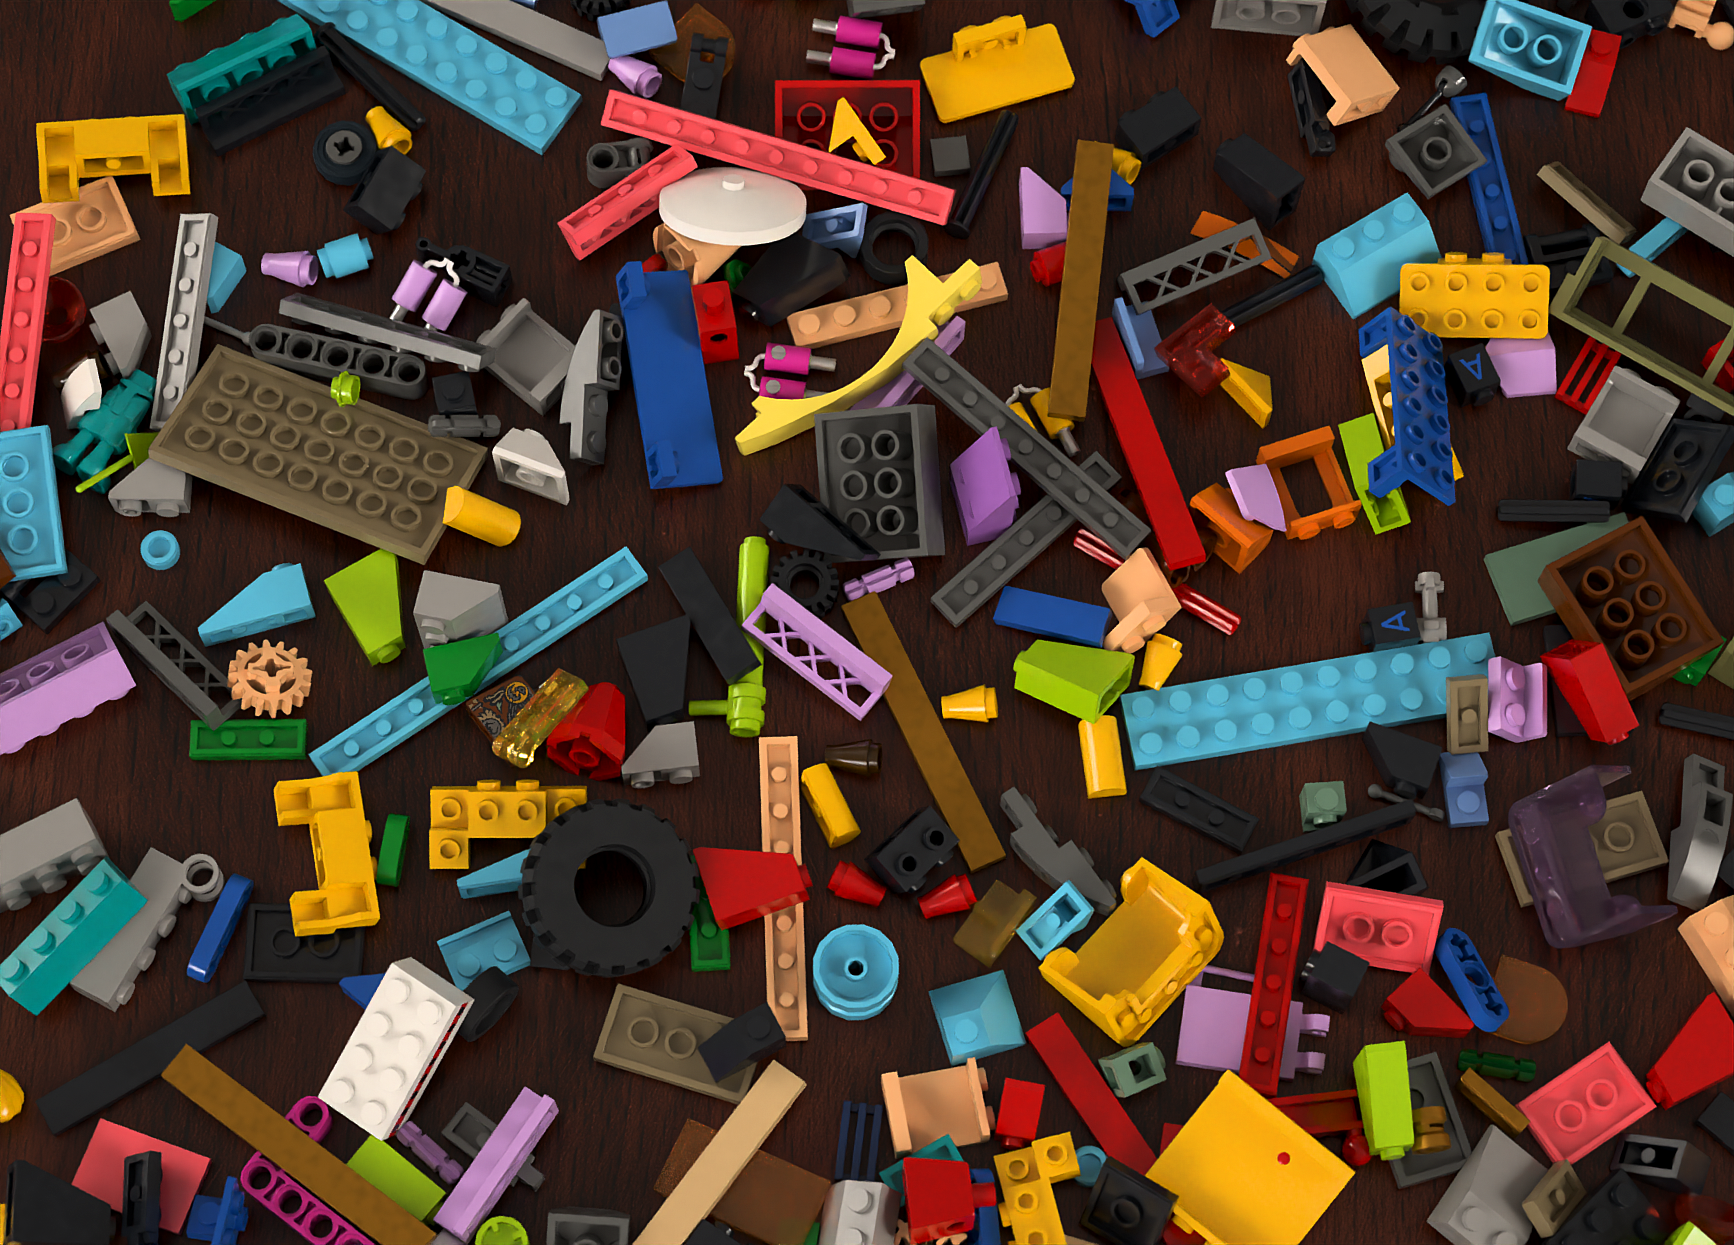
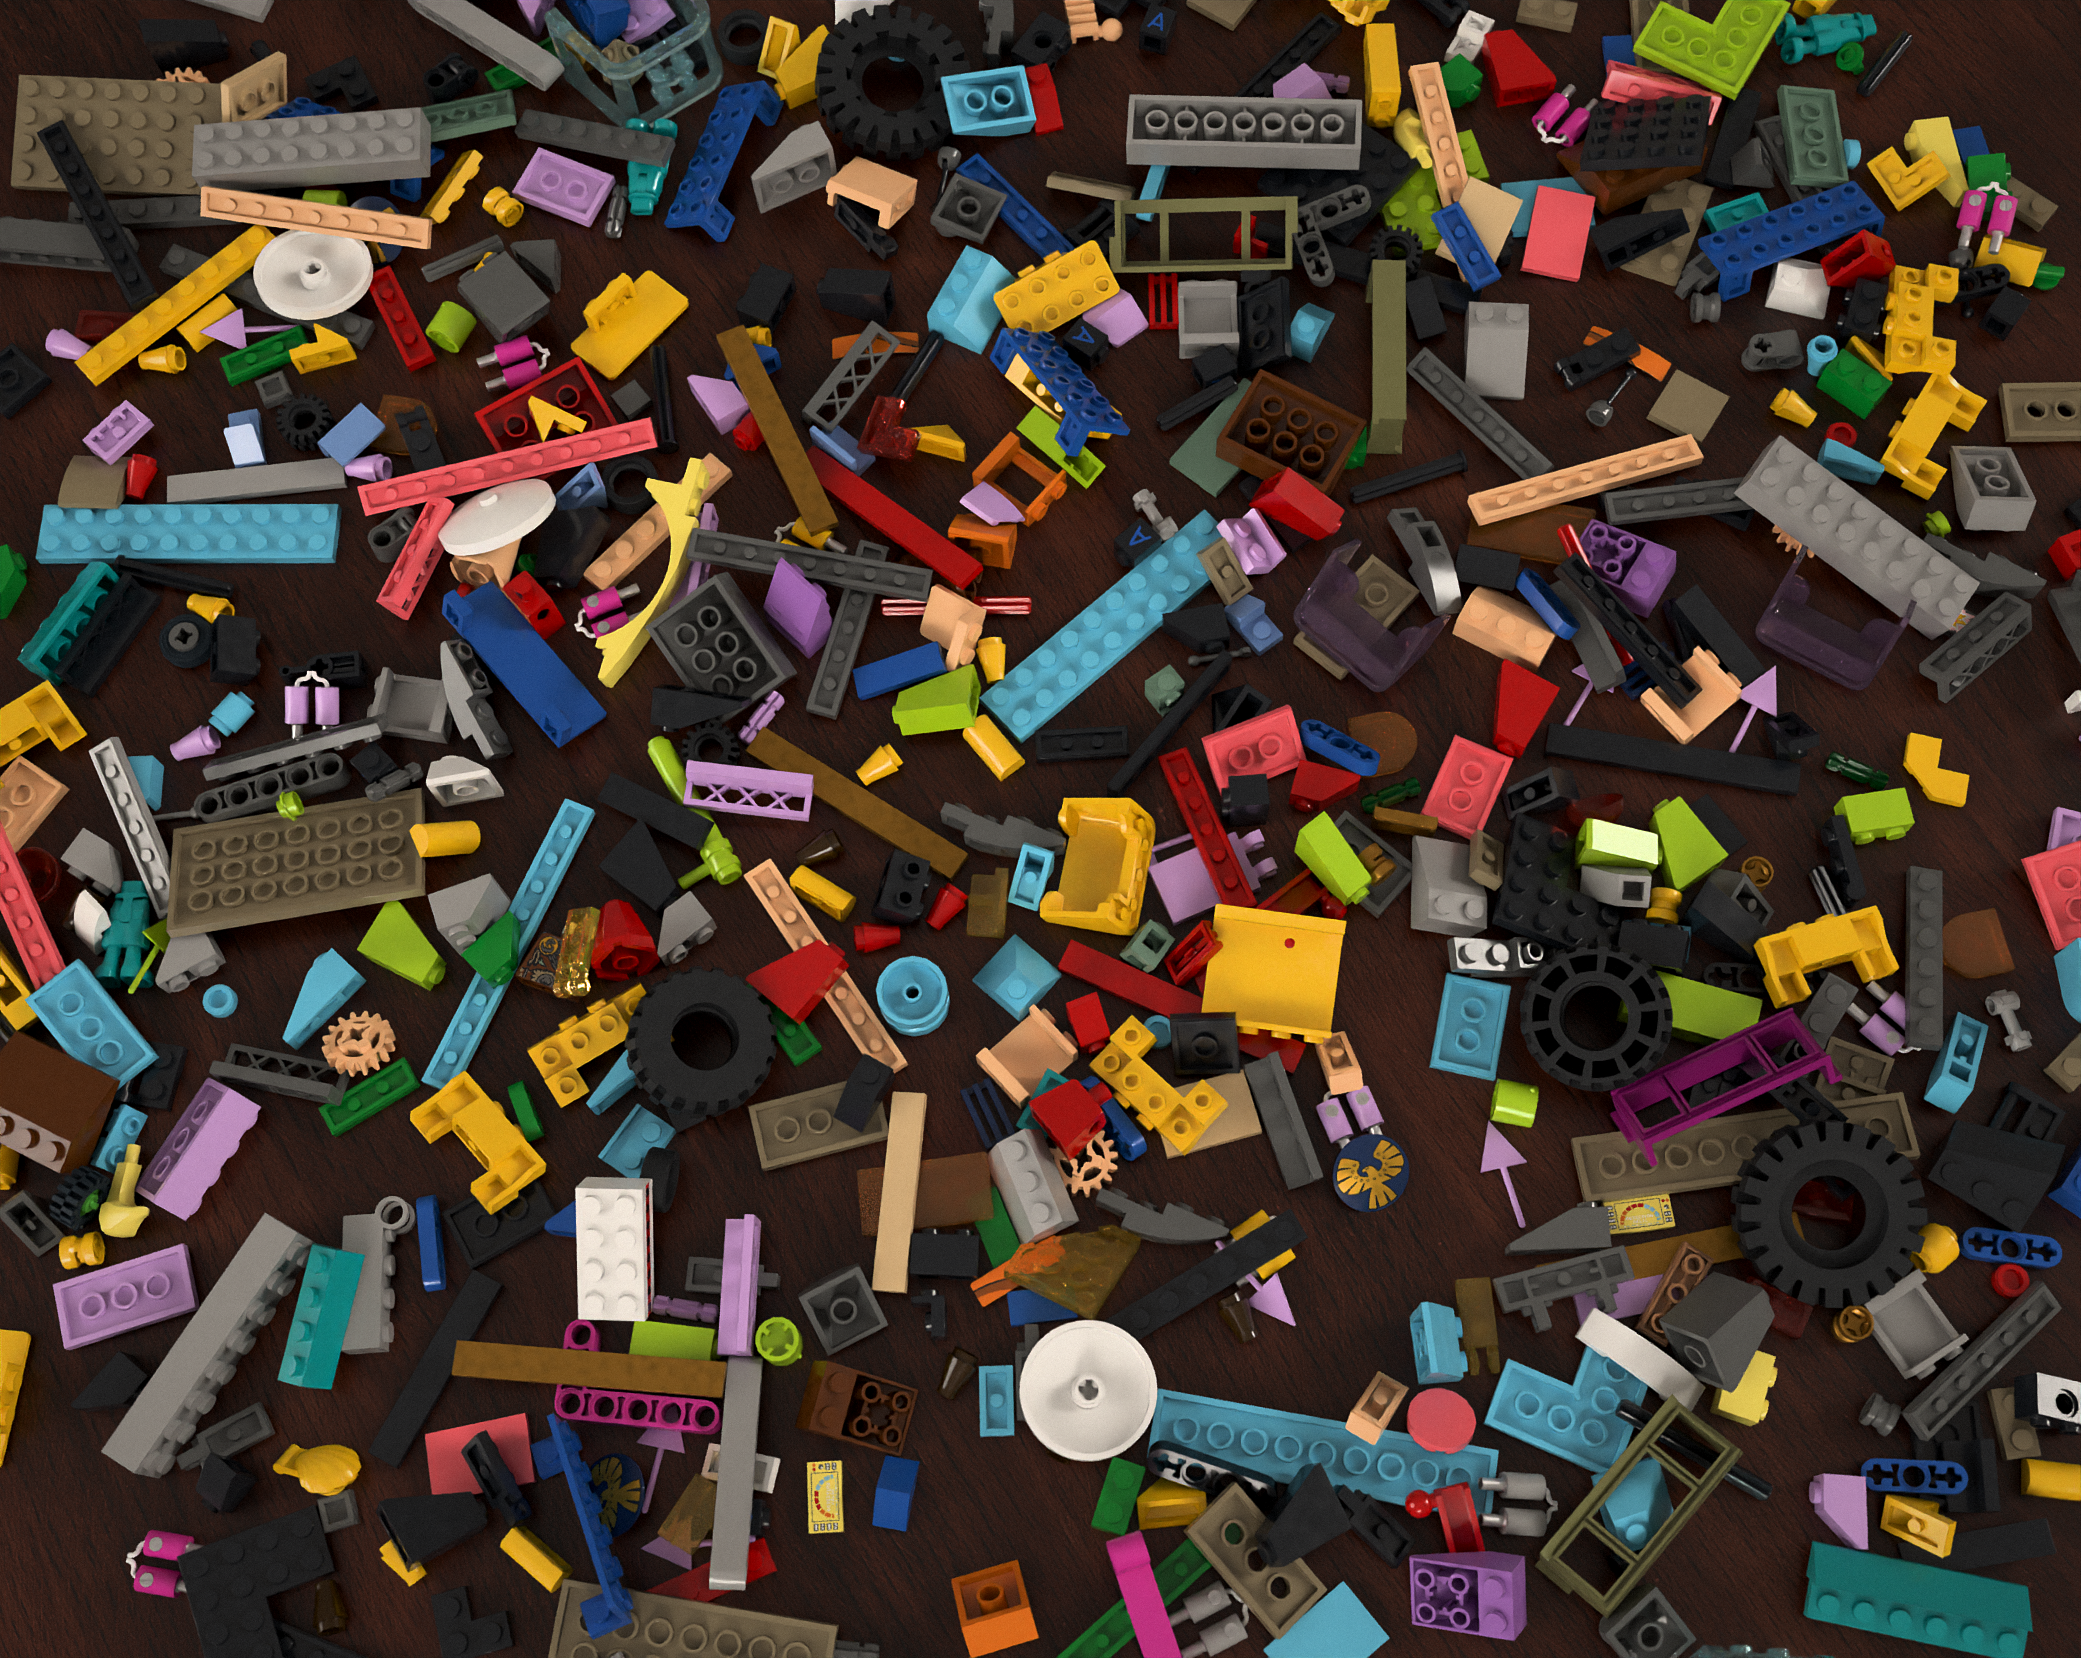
camera: 25 degrees left, 0 degrees up
(1175, 1112) = (1194, 957): none -> red tile

